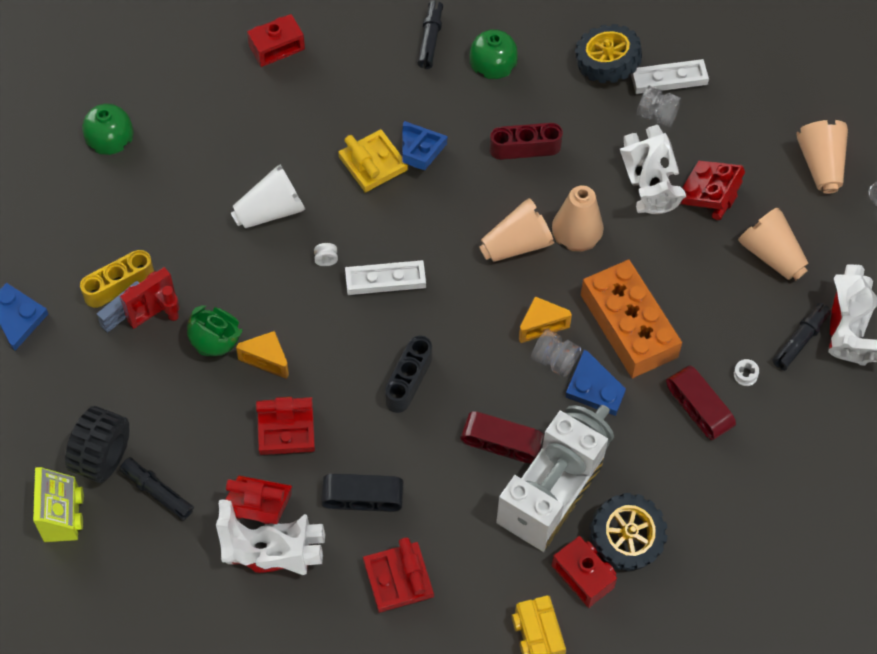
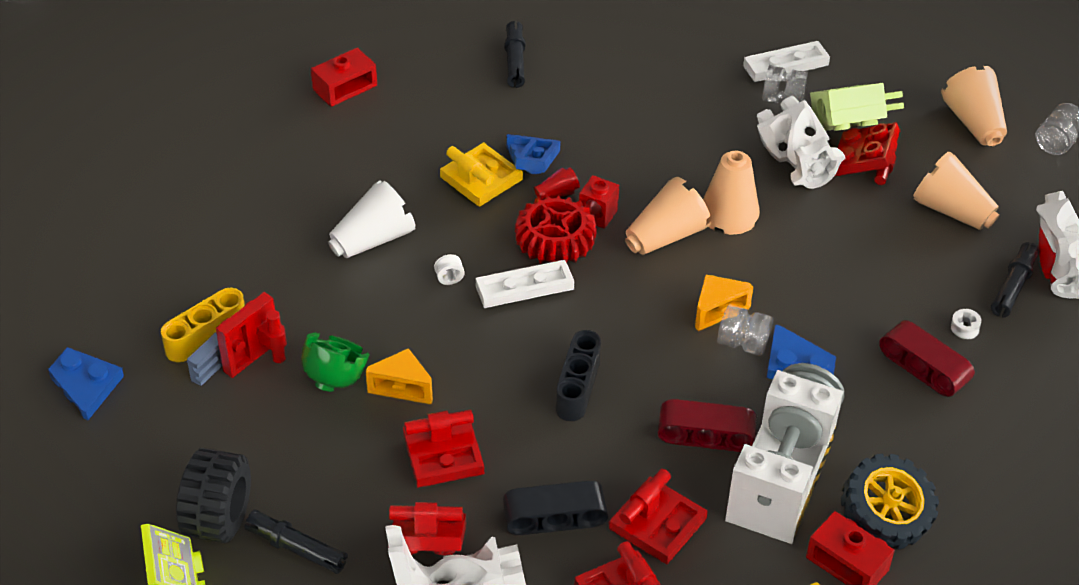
camera: 10 degrees left, 15 degrees down
(107, 129) = (164, 180): green cylinder -> none
(414, 239) = (555, 230): none -> red gear
(434, 182) = (561, 183): none -> red cone
(441, 515) = (658, 518): none -> red plate
(465, 205) = (601, 198): none -> red brick
(493, 54) = (589, 62): green cylinder -> none
(514, 139) = (648, 135): dark red beam -> none
(612, 62) = (715, 46): black wheel -> none
(631, 318) = (820, 285): orange brick -> none
(712, 139) = (854, 104): none -> yellowish green brick

